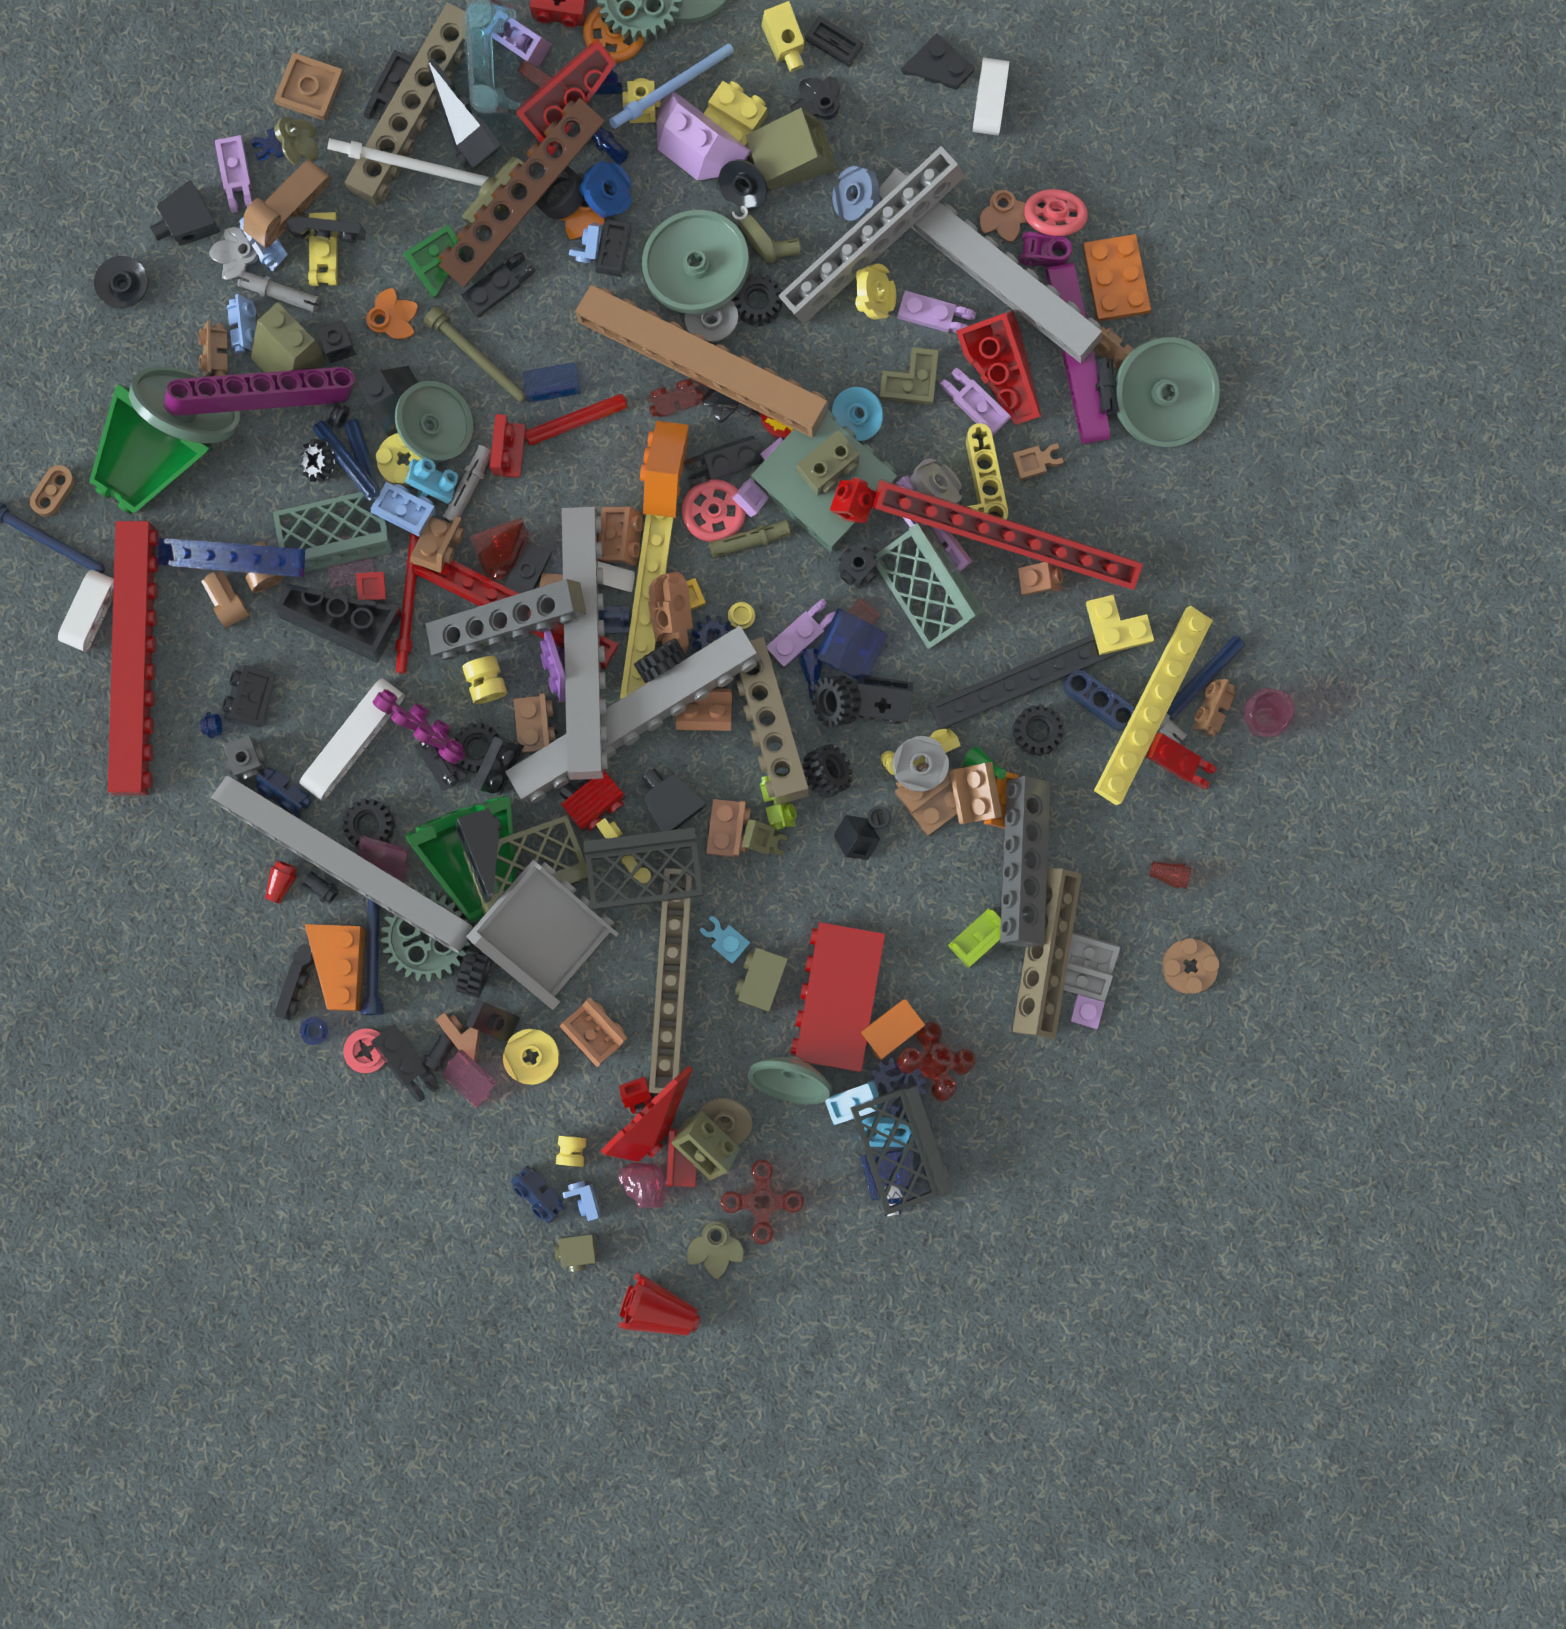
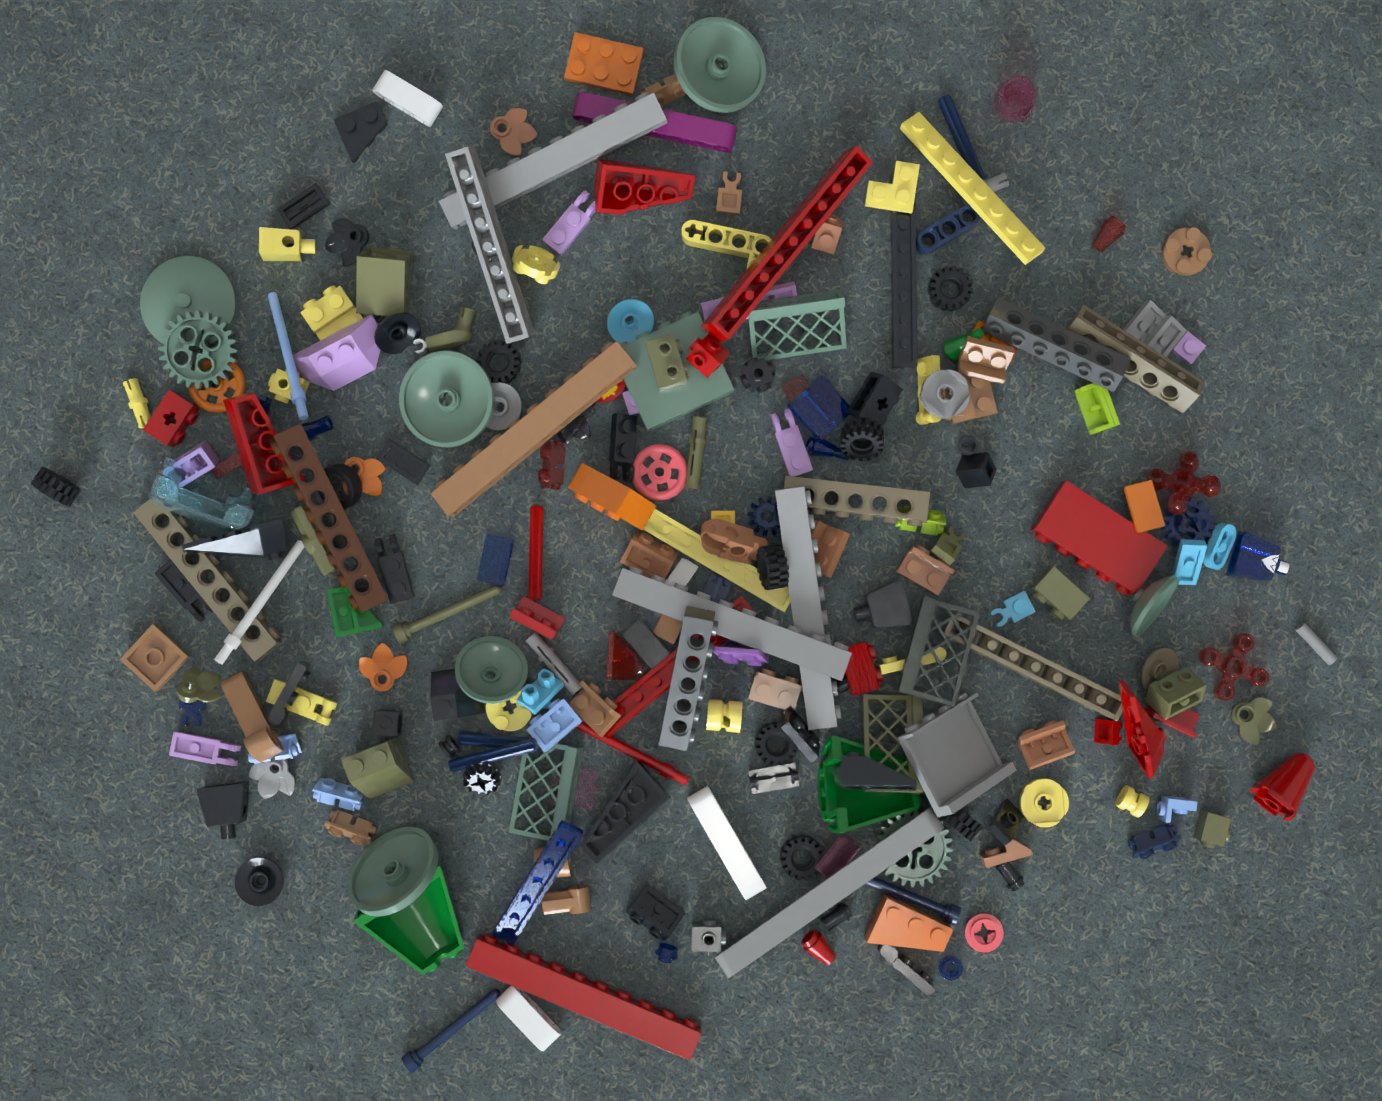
camera: 70 degrees left, 5 degrees up
(50, 490) = (412, 1008): medium nougat plate -> none
(267, 287) = (315, 761): light grey pin -> none
(272, 785) = (739, 922): dark blue hinge -> none
(330, 384) = (411, 814): magenta beam -> none
(371, 586) = (607, 776): red tile -> none
(403, 1061) = (1005, 906): black hinge -> none
(448, 748) = (743, 784): magenta plant -> none
(469, 1078) = (1042, 859): clear pink piece -> none
(590, 238) = (389, 477): light blue bracket -> none
(593, 189) = (349, 457): blue plate -> none
(644, 1184) = (1186, 755): clear pink hair -> none
(741, 615) = (756, 486): light yellow plate -> none
(750, 497) = (663, 437): lavender plate -> none
(826, 1284) = (1316, 643): none -> light grey piece
(827, 770) = (916, 470): black tyre -> none
(855, 179) = (449, 232): sand blue plate -> none
(916, 385) = (625, 264): olive plate -> none
(924, 1142) = (1244, 519): pearl dark grey fence -> none
(936, 480) = (715, 282): light grey plate -> none
(976, 402) = (660, 222): lavender hinge -> none
(1043, 247) = (555, 115): magenta piece -> none
(1055, 212) = (530, 88): coral plate -> none
(1106, 386) = (696, 110): black pin -> none
(1179, 760) = (1023, 187): red hinge -> none
(1217, 695) = (982, 136): medium nougat hinge -> none

